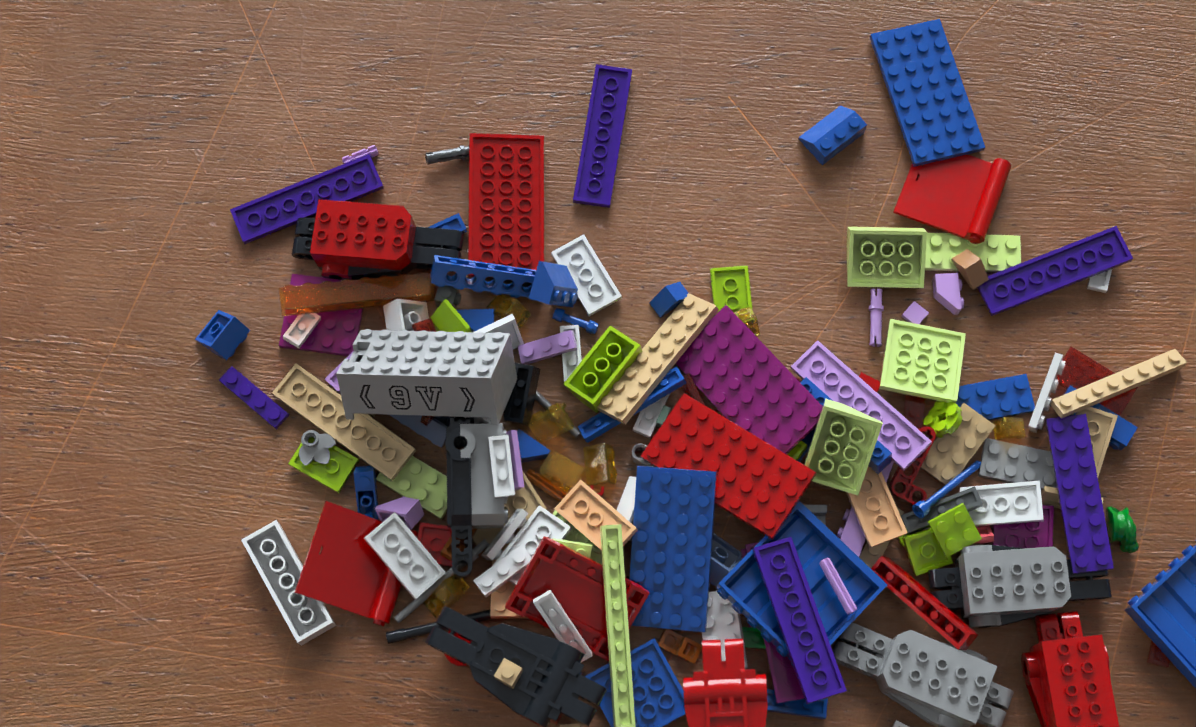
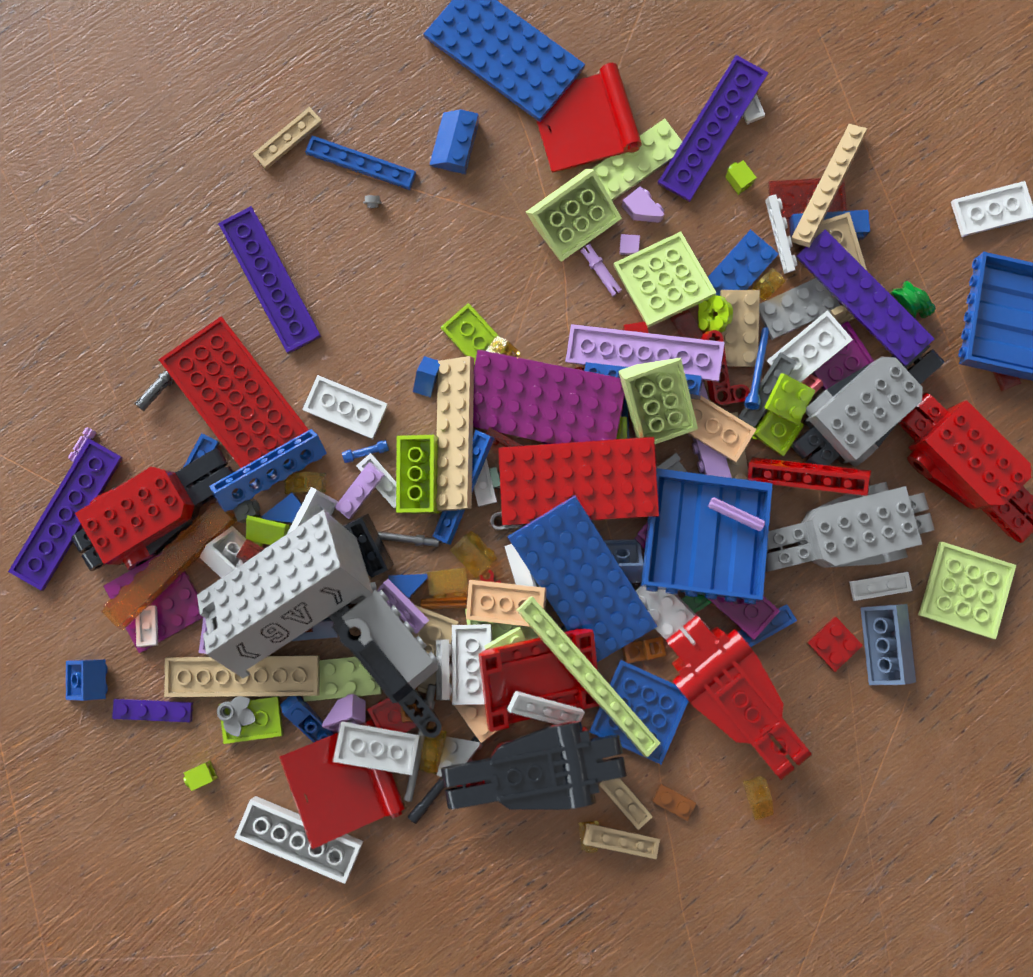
camera: 35 degrees left, 10 degrees up
(250, 474) = (200, 776): none -> lime brick
(468, 607) = (457, 752): none -> light grey wing
(501, 466) = (402, 626): white plate -> none
(503, 571) = (465, 701): white plate -> none
(508, 673) = (536, 787): tan brick -> none
(550, 423) = (409, 550): clear yellow bracket -> none
(554, 285) = (327, 438): blue slope -> none
(700, 38) = (287, 138): none -> tan plate
(730, 133) = (372, 201): none -> light grey plate
(744, 97) = (360, 162): none -> blue tile
(799, 620) = (728, 566): dark purple plate -> none
(970, 268) = (647, 174): medium nougat slope -> none
(1049, 325) = (740, 176): none -> lime brick

